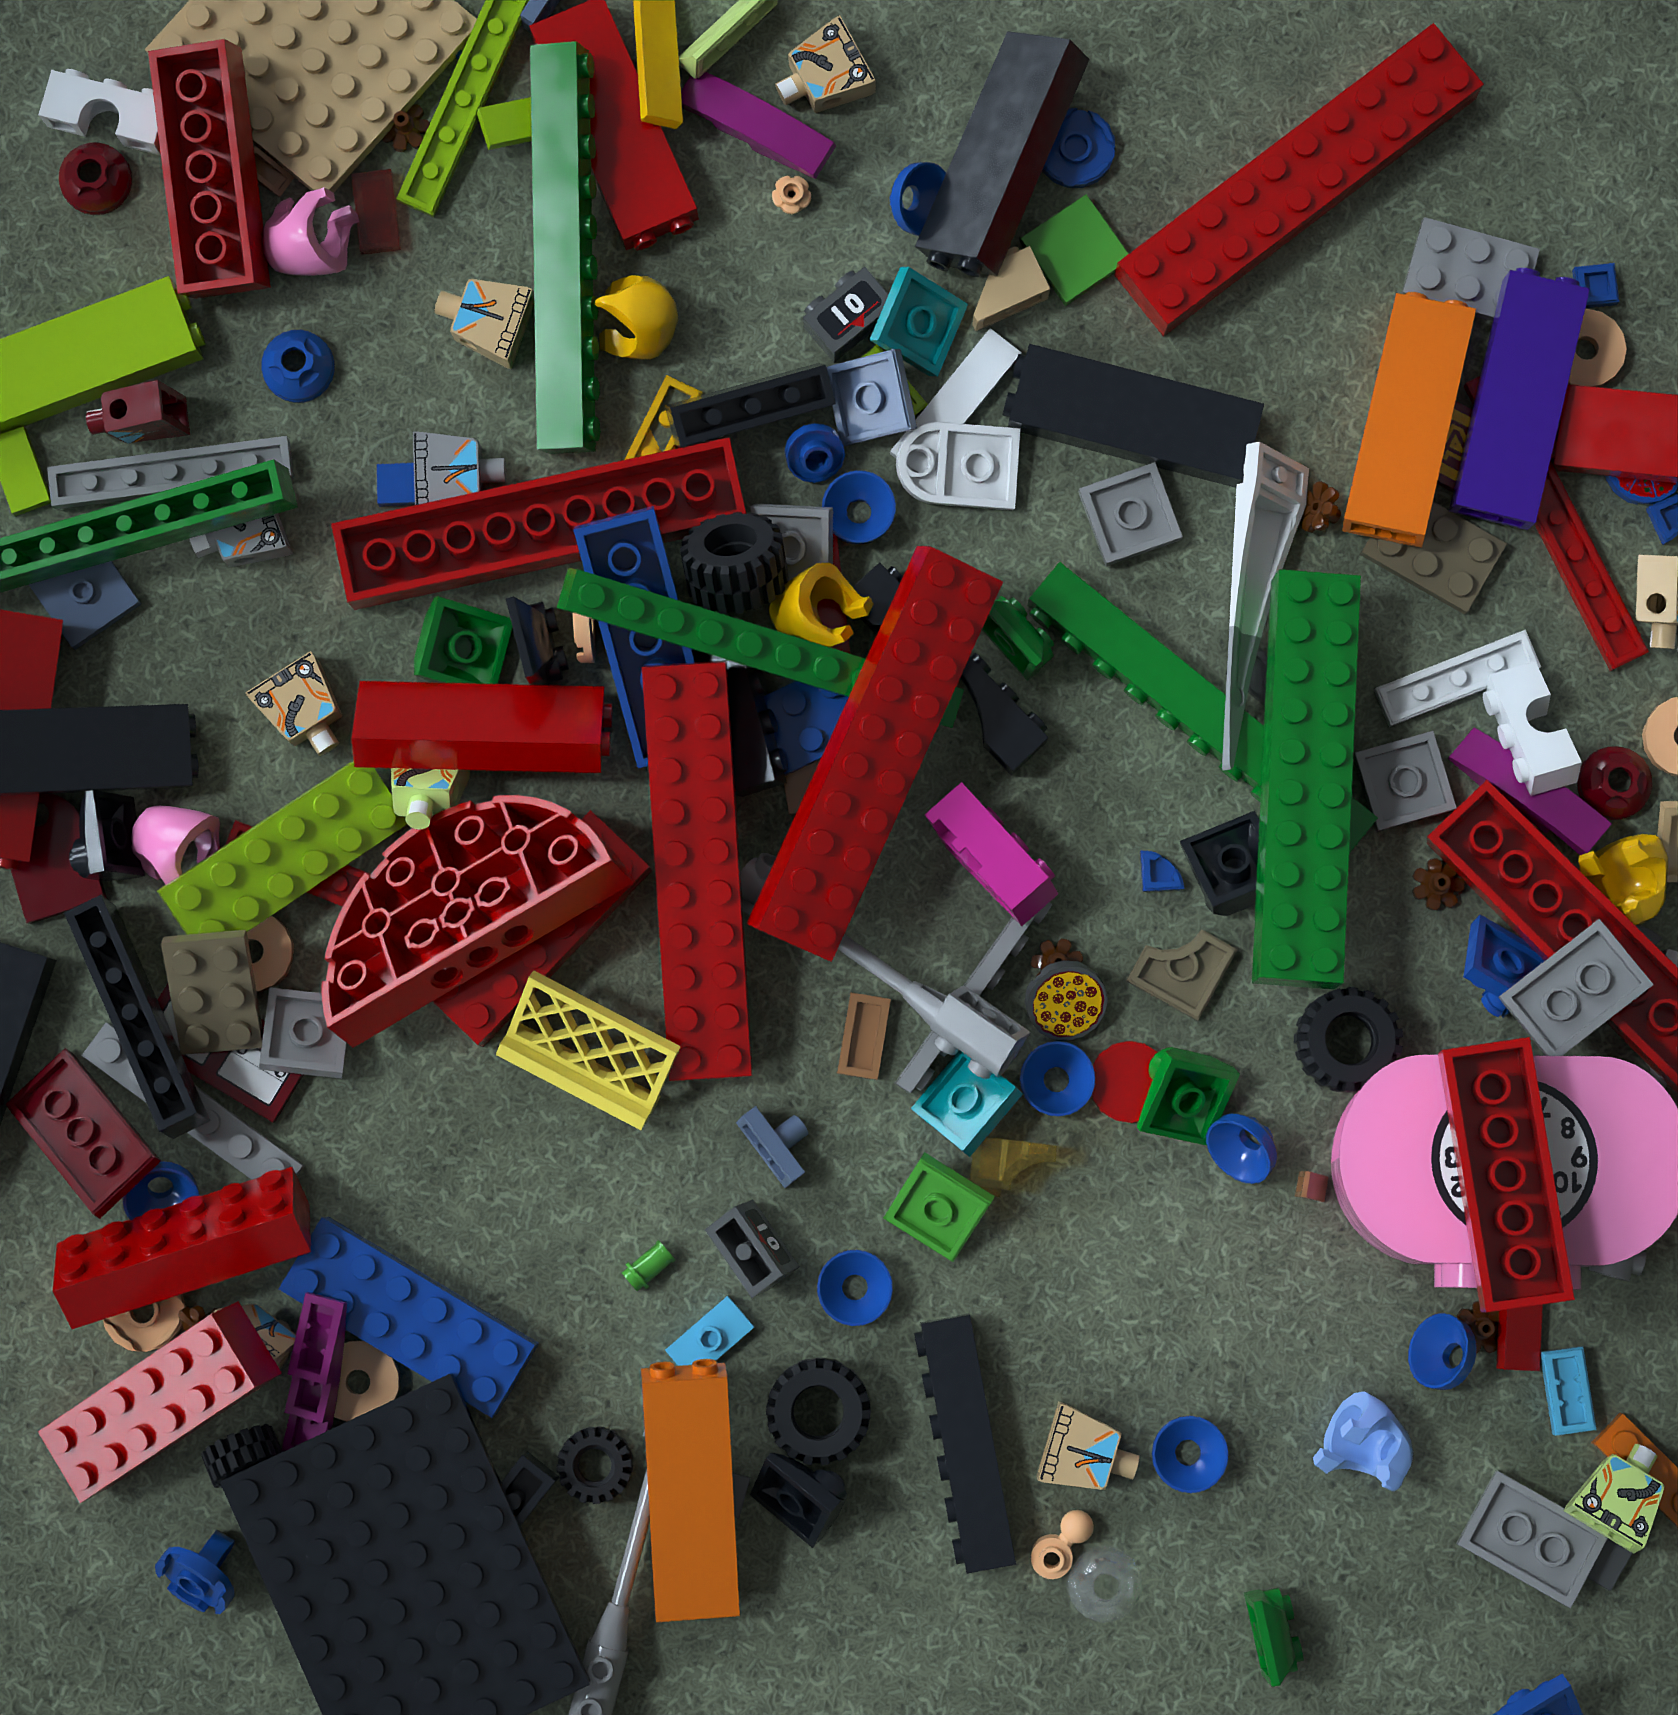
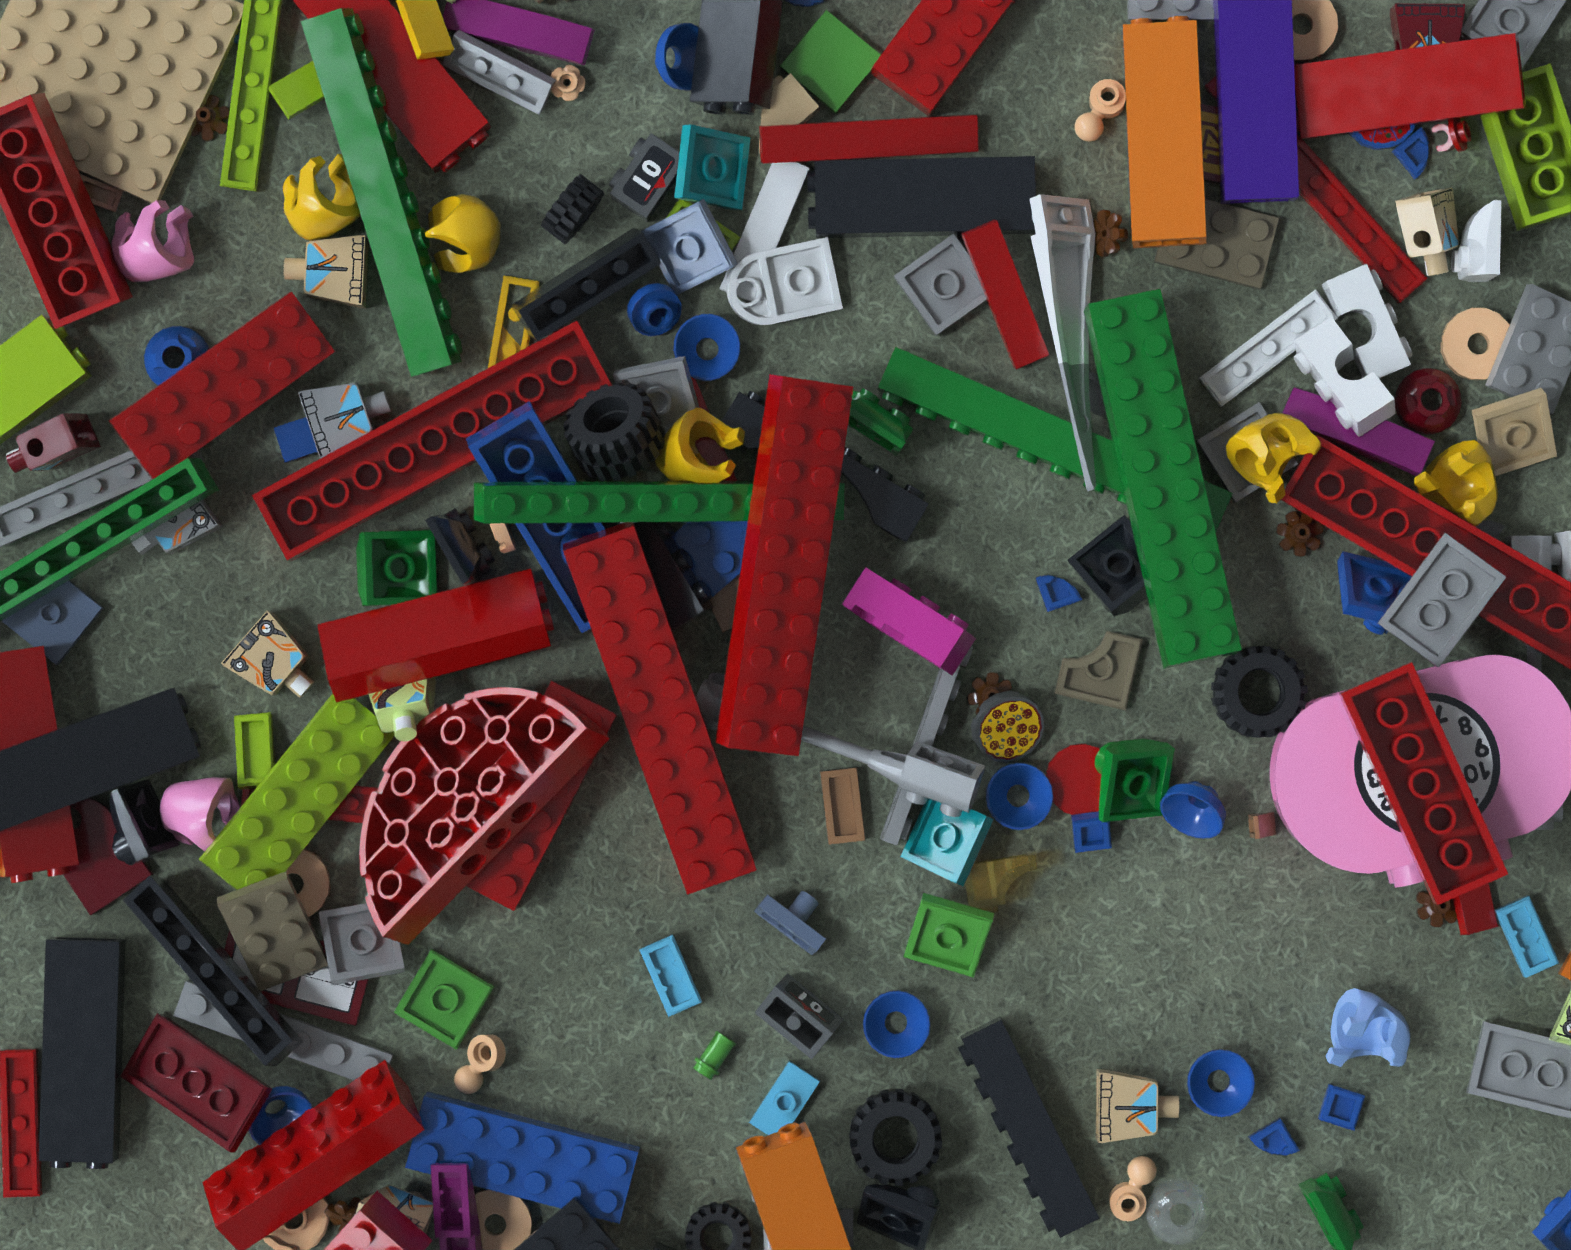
camera: 20 degrees left, 5 degrees up
(253, 794) = (253, 748): none -> lime tile
(335, 400) = (222, 385): none -> red brick
(376, 211) = (205, 201): clear red tile -> none
(376, 1121) = (444, 999): none -> bright green tile
(378, 1214) = (469, 1077): none -> light nougat plate
(482, 247) = (308, 209): none -> yellow piece
(578, 1071) = (606, 907): light yellow fence -> none
(626, 1166) = (670, 975): none -> medium azure plate
(723, 163) = (499, 72): none -> light grey plate
(758, 322) = (572, 209): none -> black tyre
(1093, 337) = (868, 138): none -> red tile
(1123, 1141) = (1090, 832): none -> blue tile
(1192, 540) = (1005, 294): none -> red tile
(1231, 1534) = (1274, 1139): none -> blue tile
(1314, 1520) = (1341, 1107): none -> blue tile
(1331, 390) = (1090, 124): none -> light nougat plate
(1427, 778) = (1265, 448): none -> yellow piece
(1431, 1351) = (1401, 935): blue piece -> none
(1572, 646) = (1360, 293): none -> white arch

